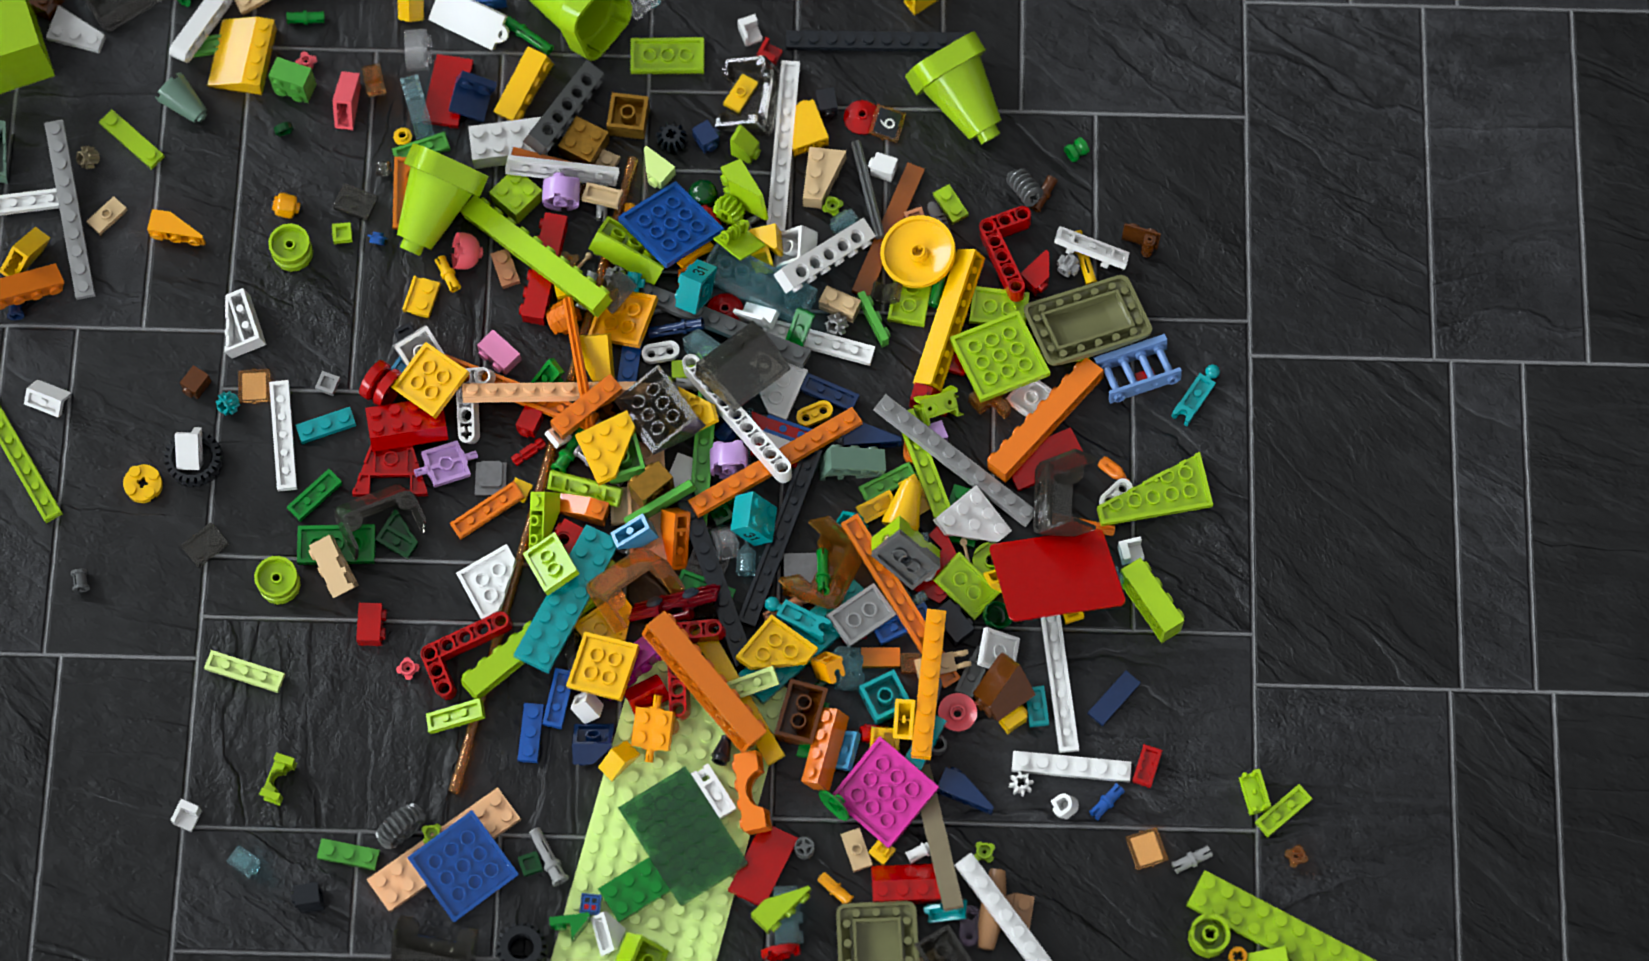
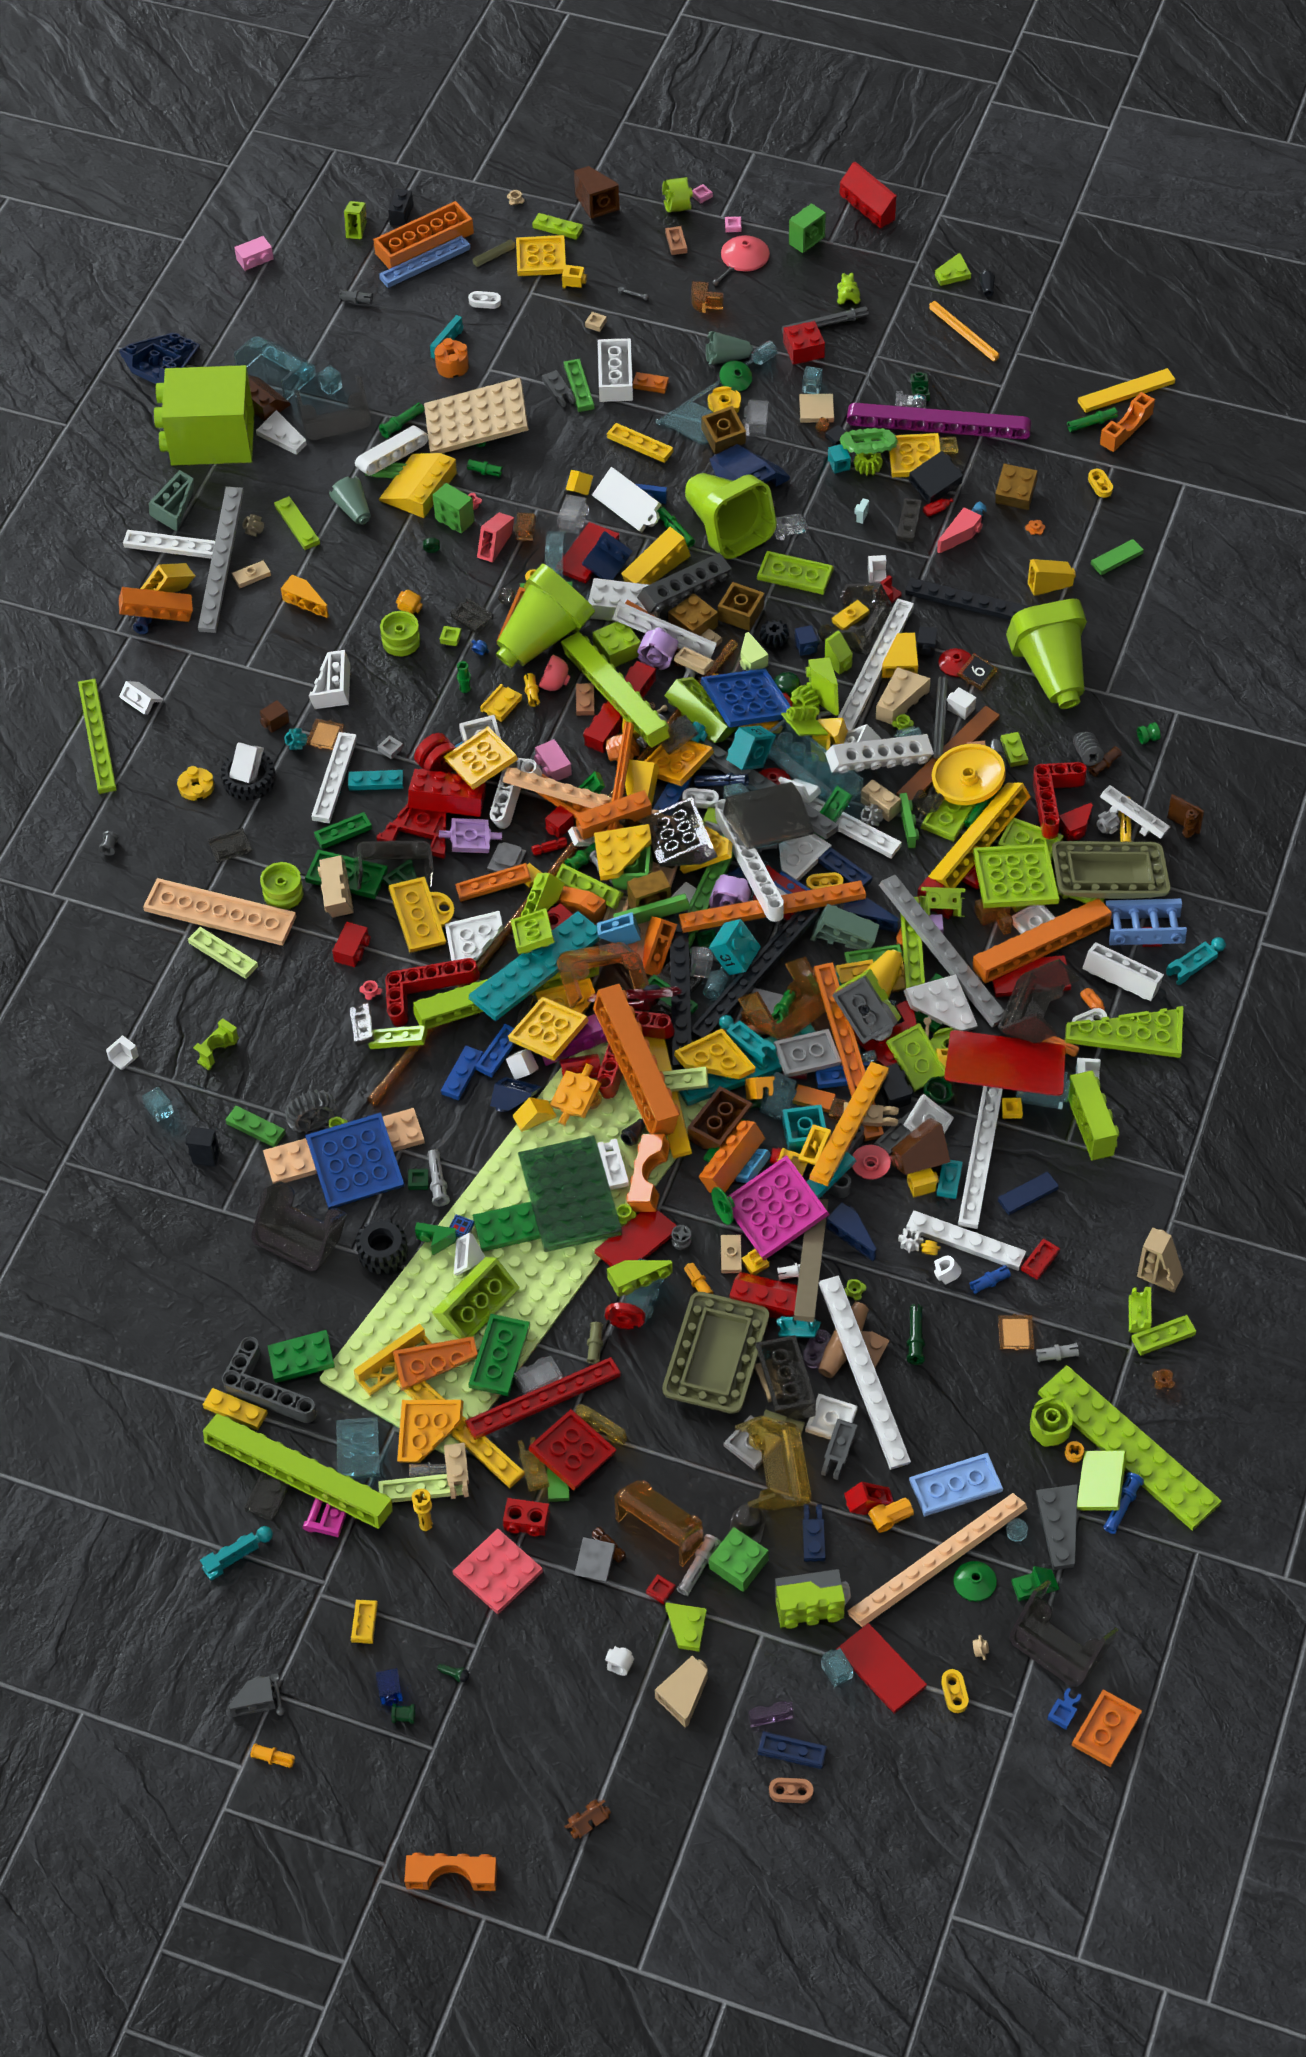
camera: 20 degrees right, 15 degrees down
(223, 625) = (220, 911): none -> light nougat plate
(375, 282) = (463, 677): none -> green pin
(415, 711) = (362, 1024): none -> clear smoke plate
(428, 569) = (420, 913): none -> yellow plate
(740, 835) = (625, 1209): none -> lime plate
(1041, 786) = (930, 1247): none -> yellow plate
(1059, 889) = (915, 1342): none -> dark green pin
(1132, 431) = (1123, 971): none -> white brick
(1260, 739) = (1160, 1261): none -> tan wedge

